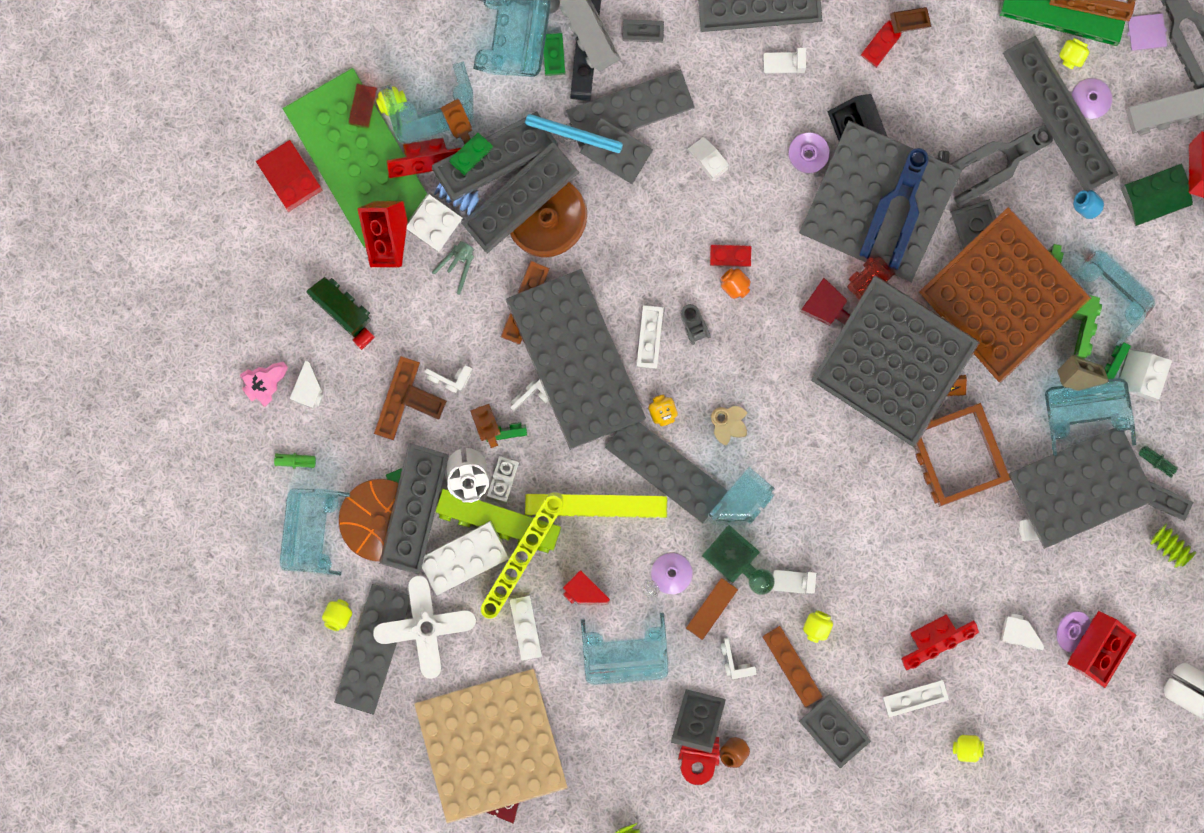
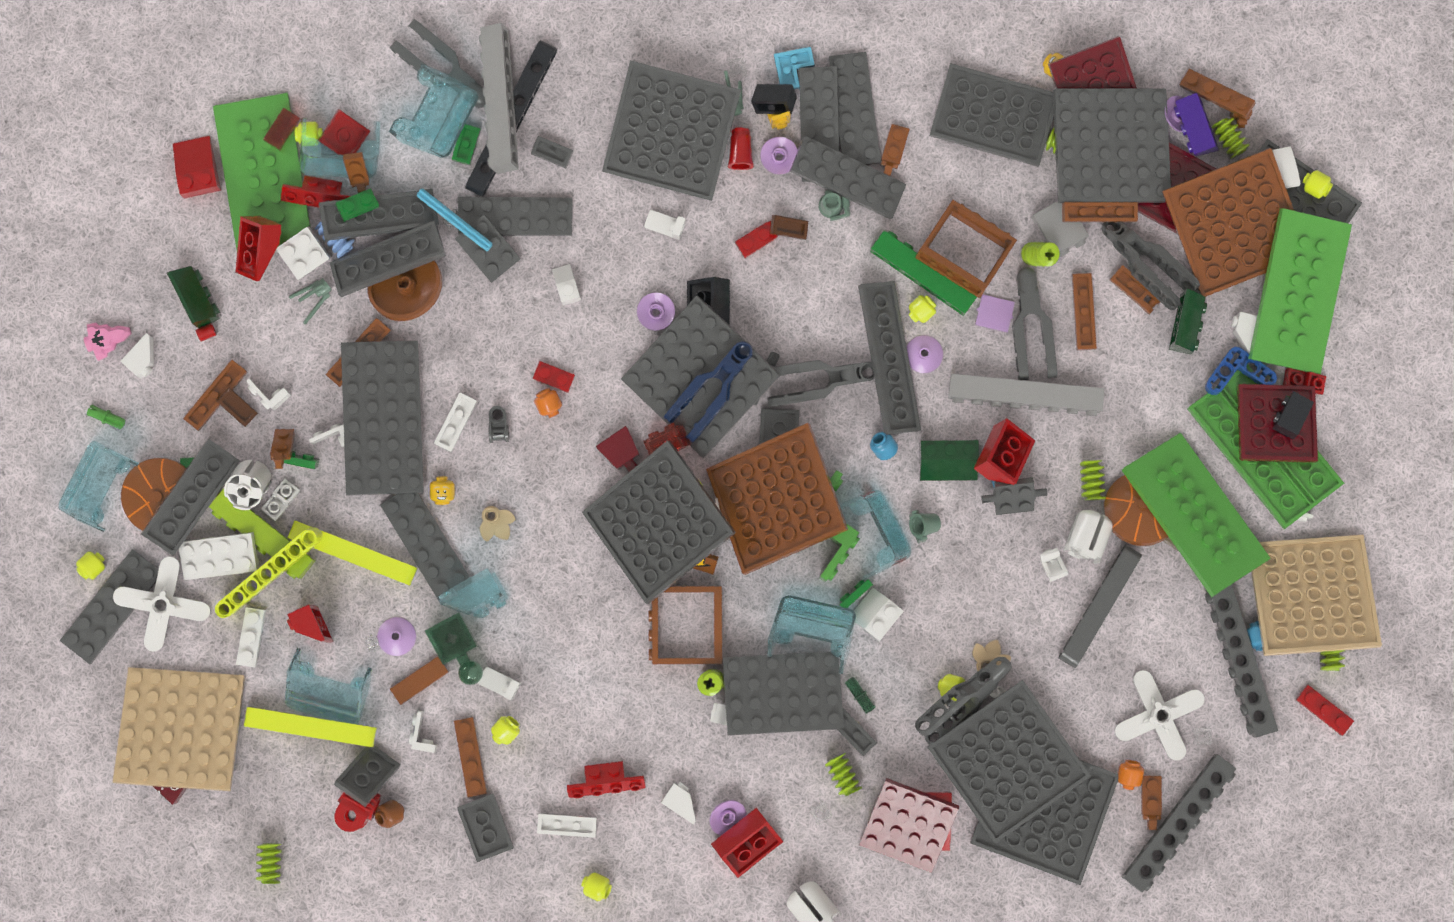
camera: 20 degrees right, 0 degrees up
(427, 88) = (343, 134): none -> red plate
(621, 695) = (310, 726): none -> neon yellow beam
(1012, 508) = (704, 685): none -> lime piece
(1081, 374) = (819, 593): dark tan slope -> none
(1157, 268) = (923, 525): none -> sand green piece

